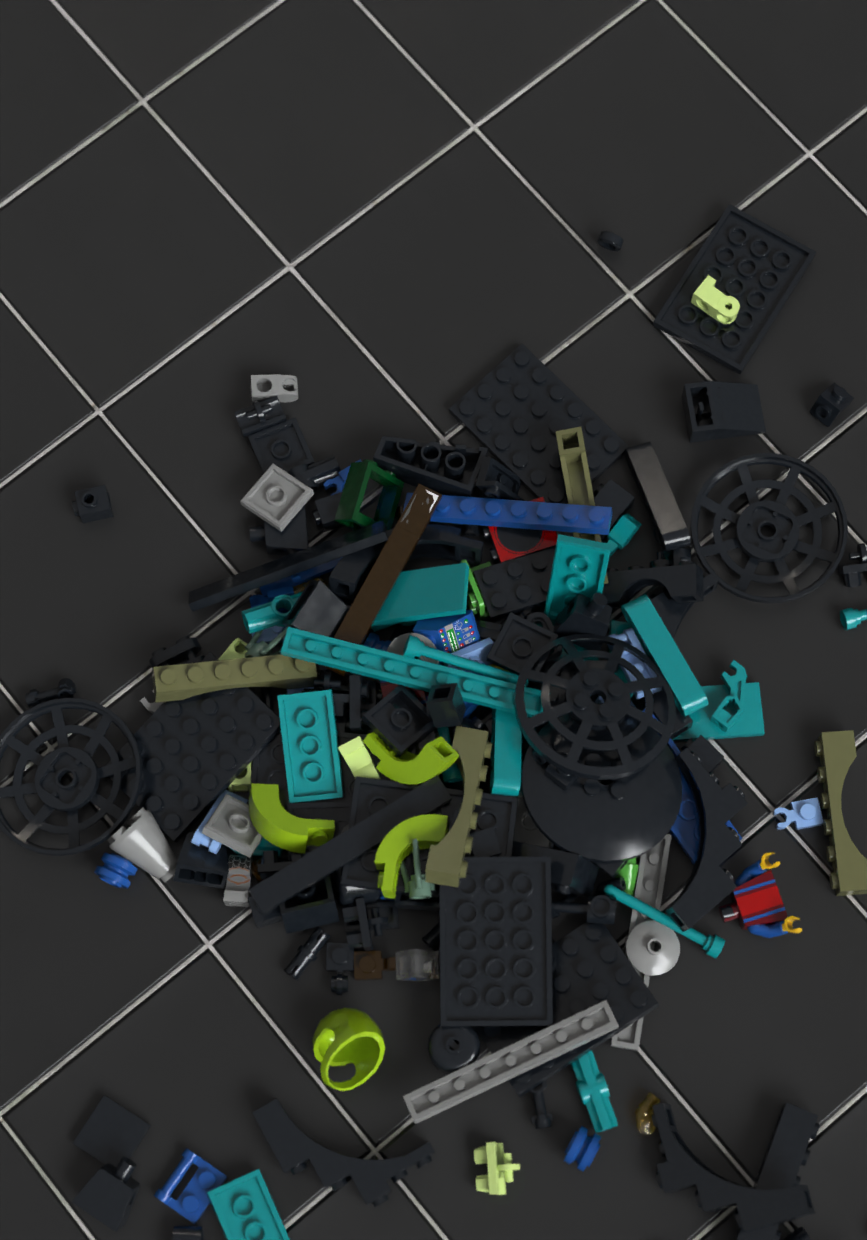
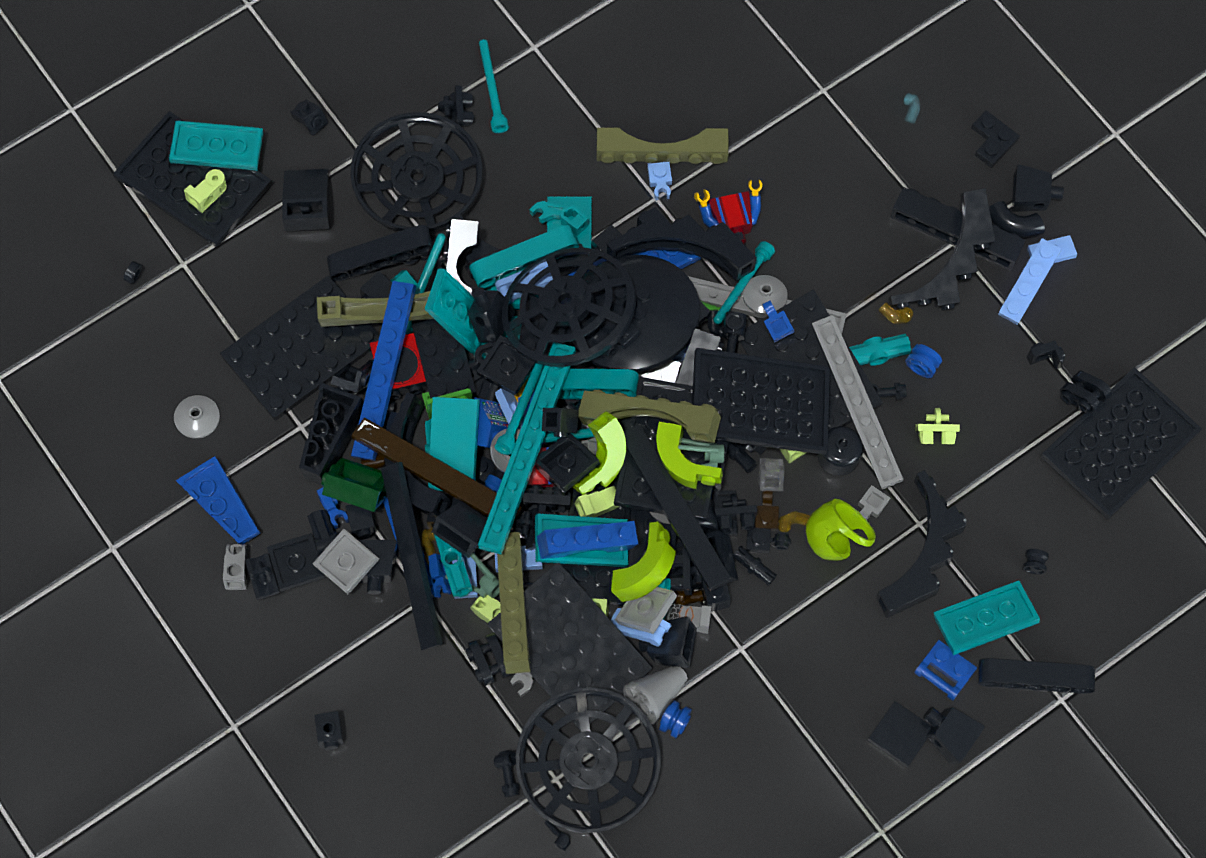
camera: 90 degrees left, 5 degrees down
(301, 748) = (572, 540): none -> blue arch
(358, 358) = (217, 495): none -> blue wing
(368, 997) = (792, 518): none -> clear yellow arm
(391, 1090) = (873, 502): none -> light grey plate
(447, 341) = (200, 425): none -> light grey dish
(605, 961) = (777, 324): none -> blue plate
(639, 549) = (427, 271): none -> teal piece
(776, 306) = (216, 145): none -> teal tile

